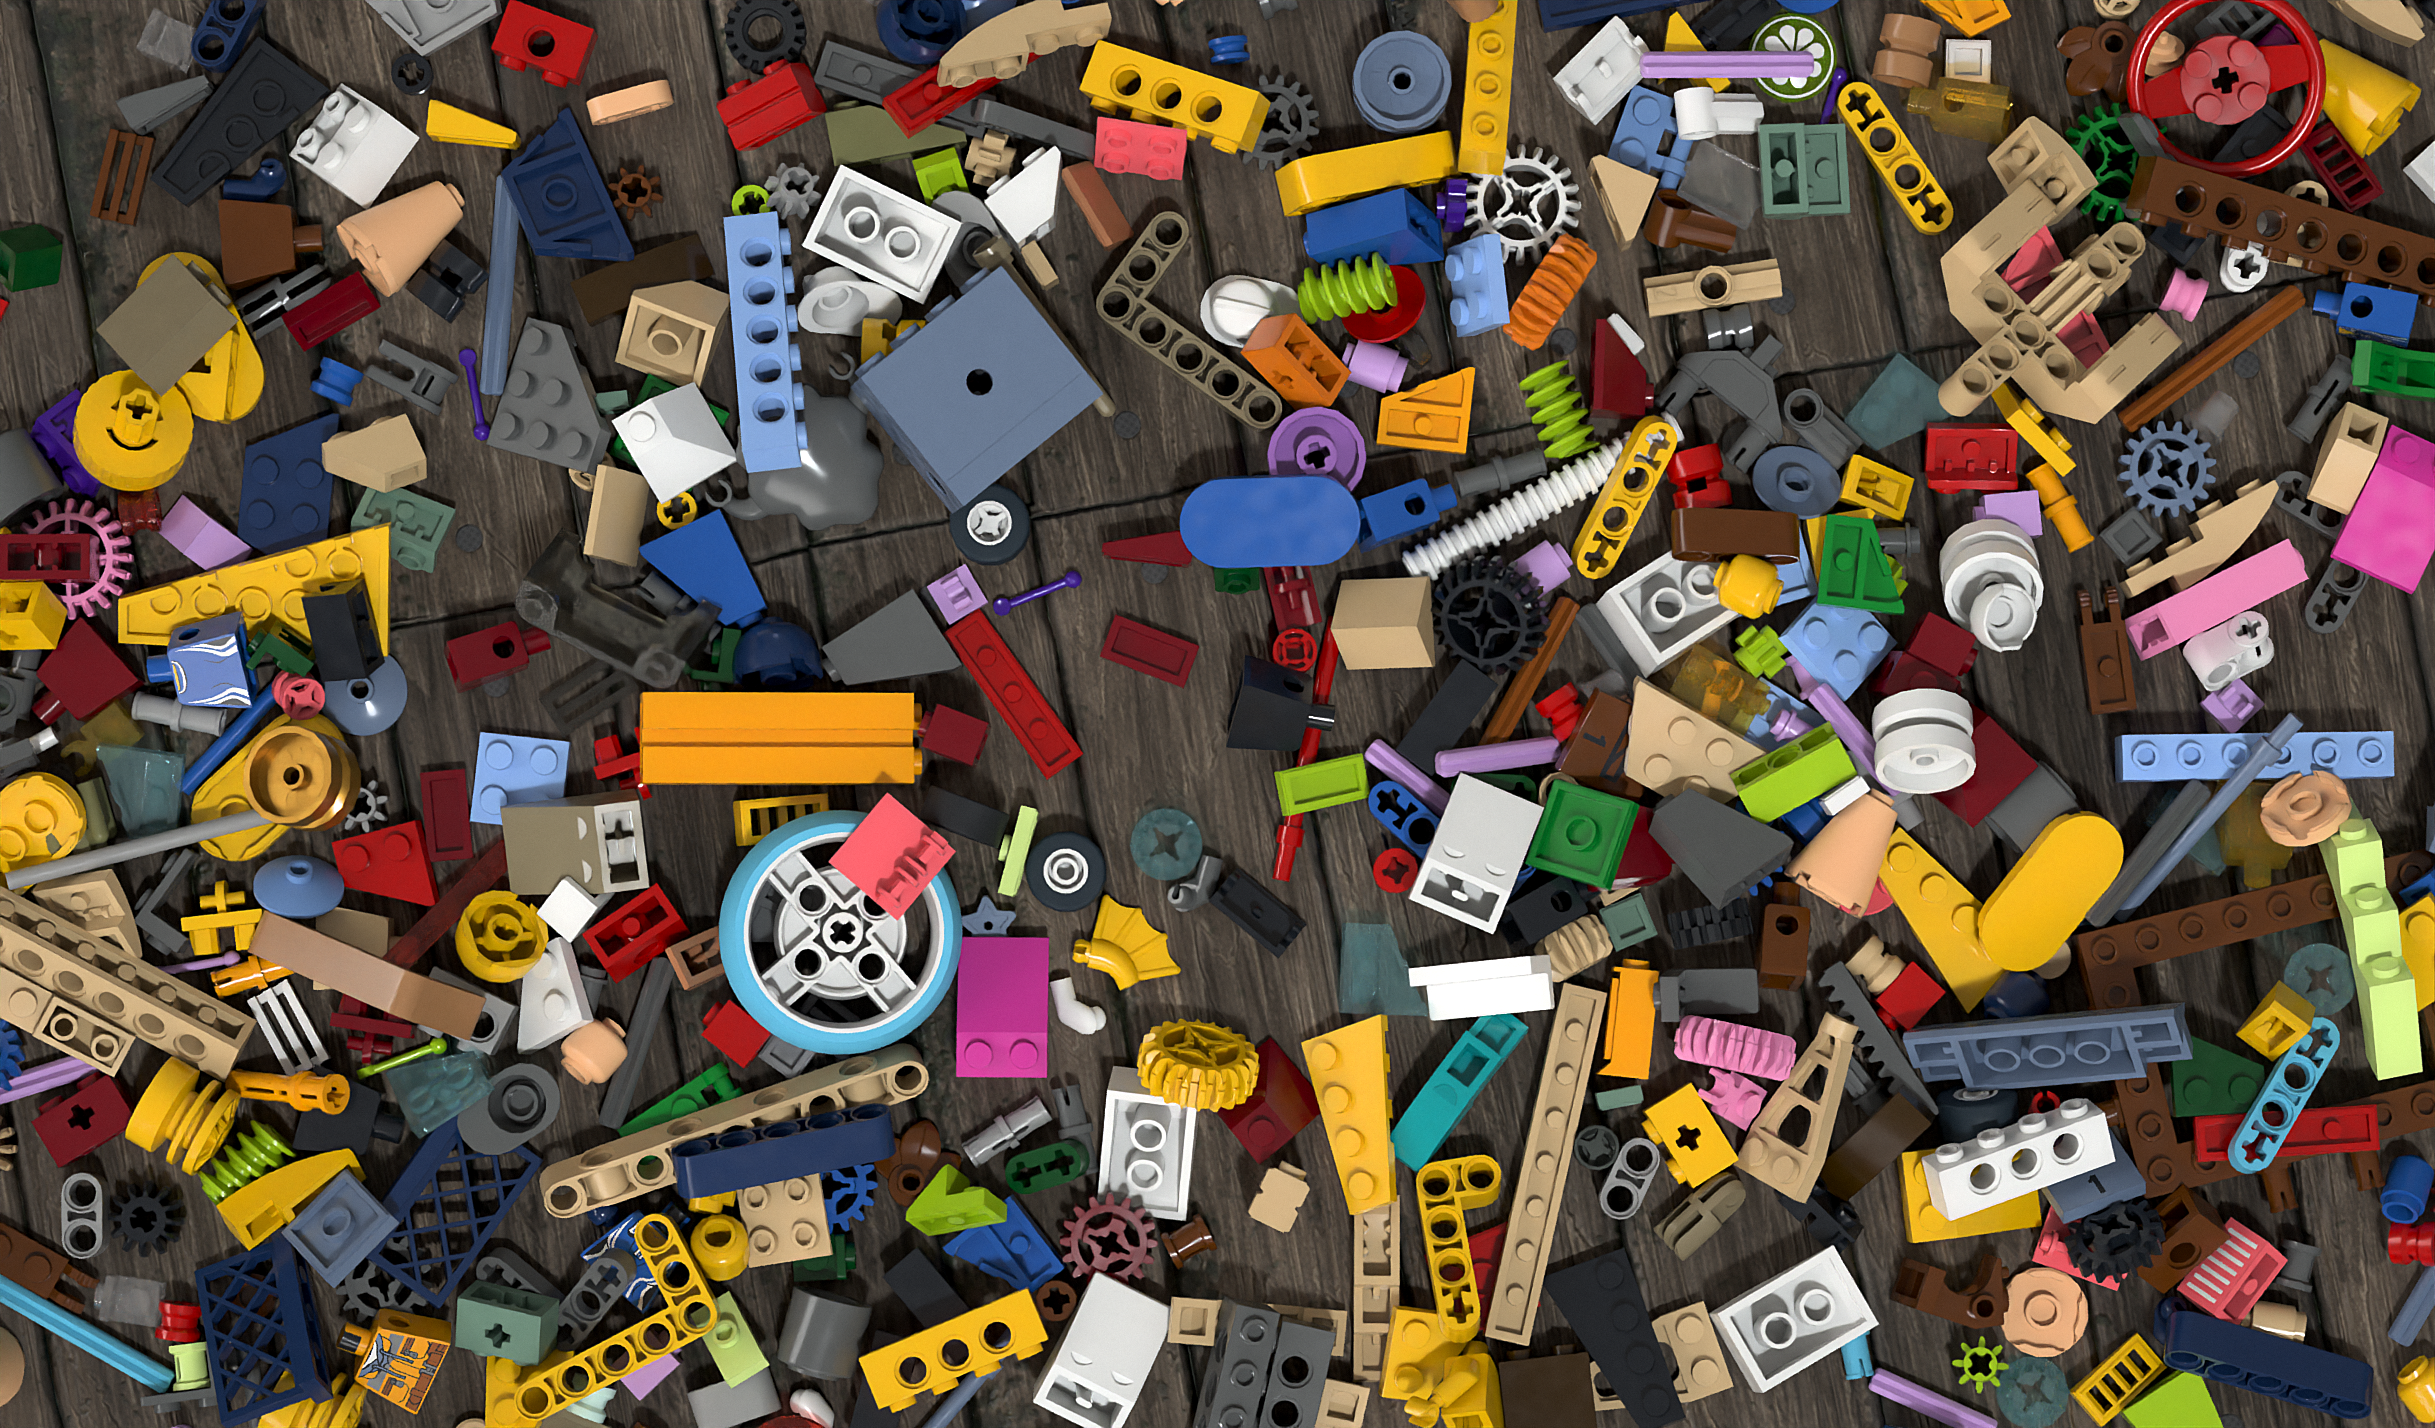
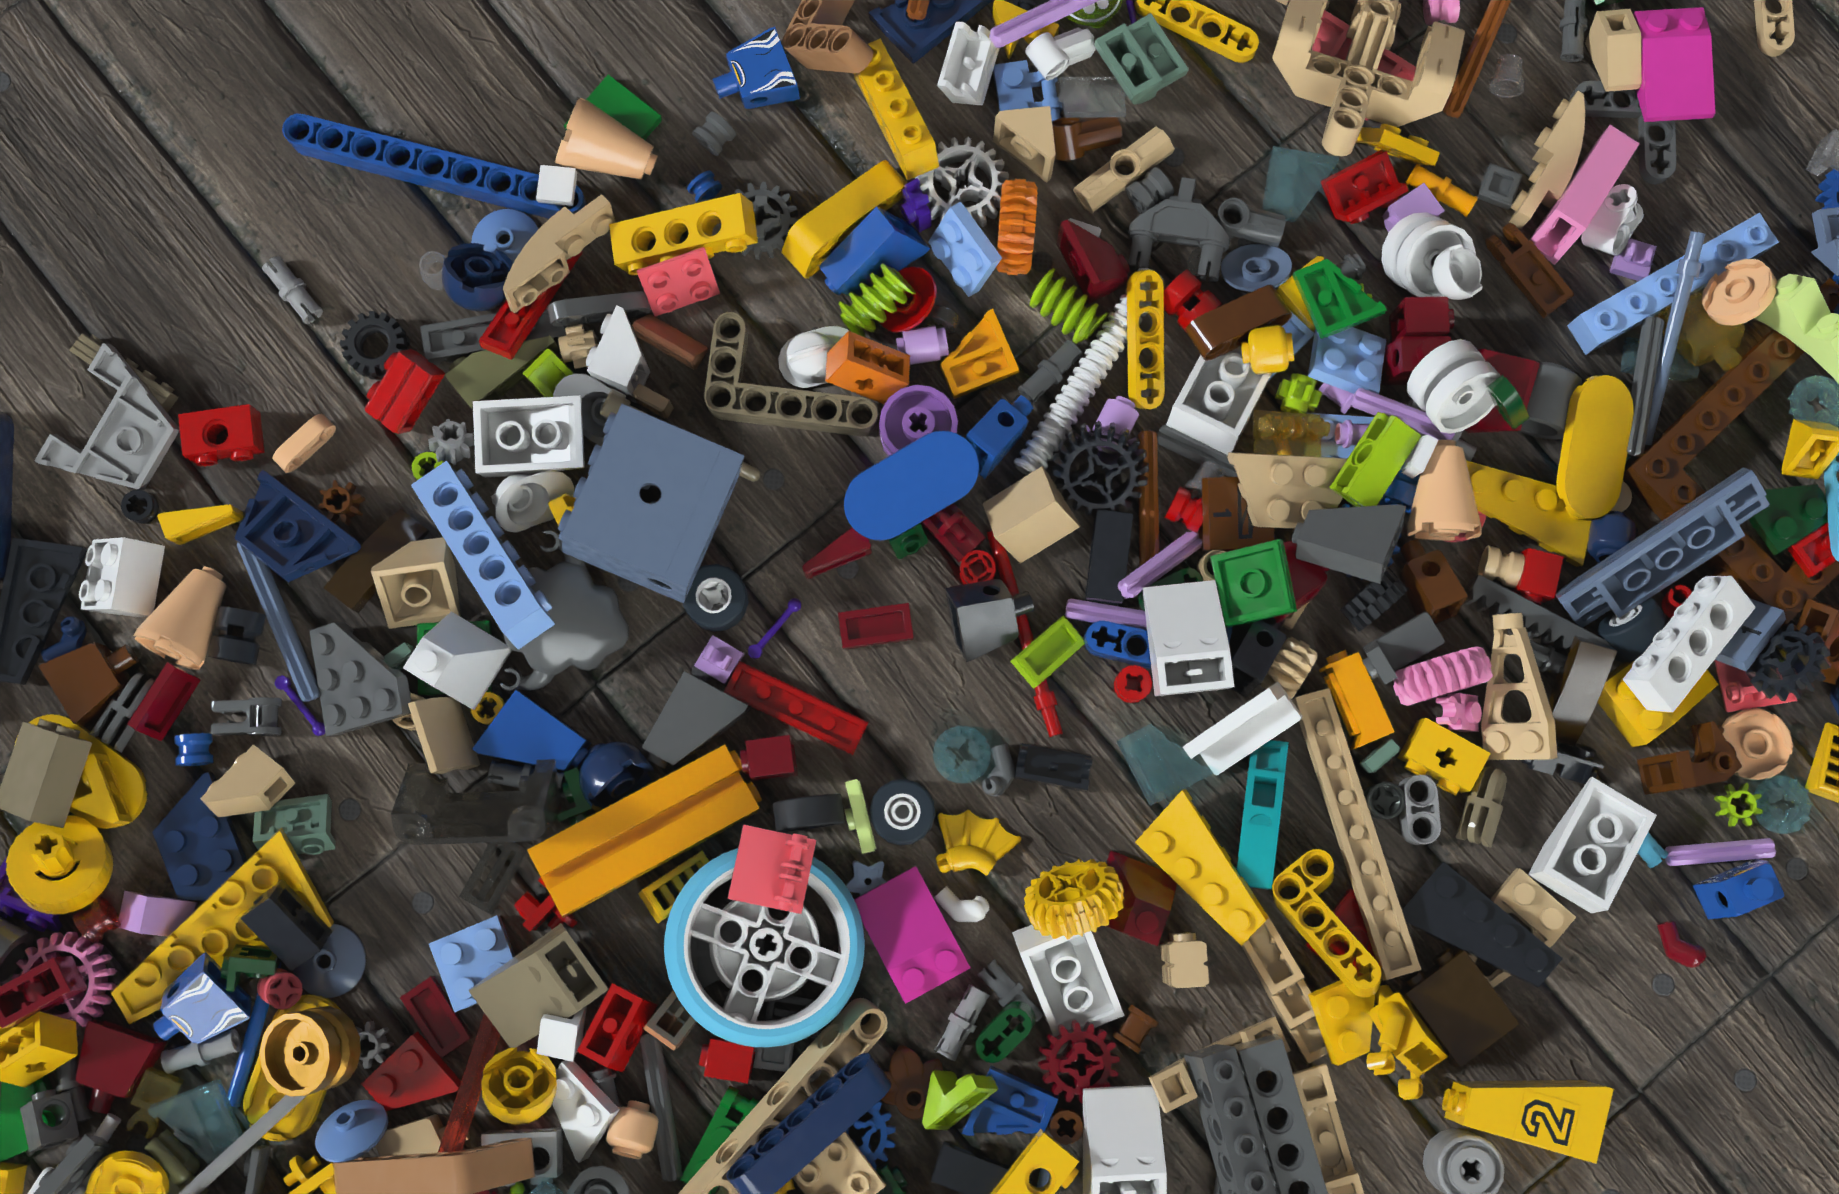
camera: 30 degrees left, 5 degrees down
(476, 664) = (401, 897): dark red torso -> none
(1398, 110) = (835, 143): sand blue wheel -> none
(1628, 922) = (1313, 630): sand green tile -> none
(1874, 487) = (1306, 241): yellow slope -> none
(1967, 790) = (1508, 402): none -> dark green beam
(2179, 486) = (1486, 137): sand blue gear -> none

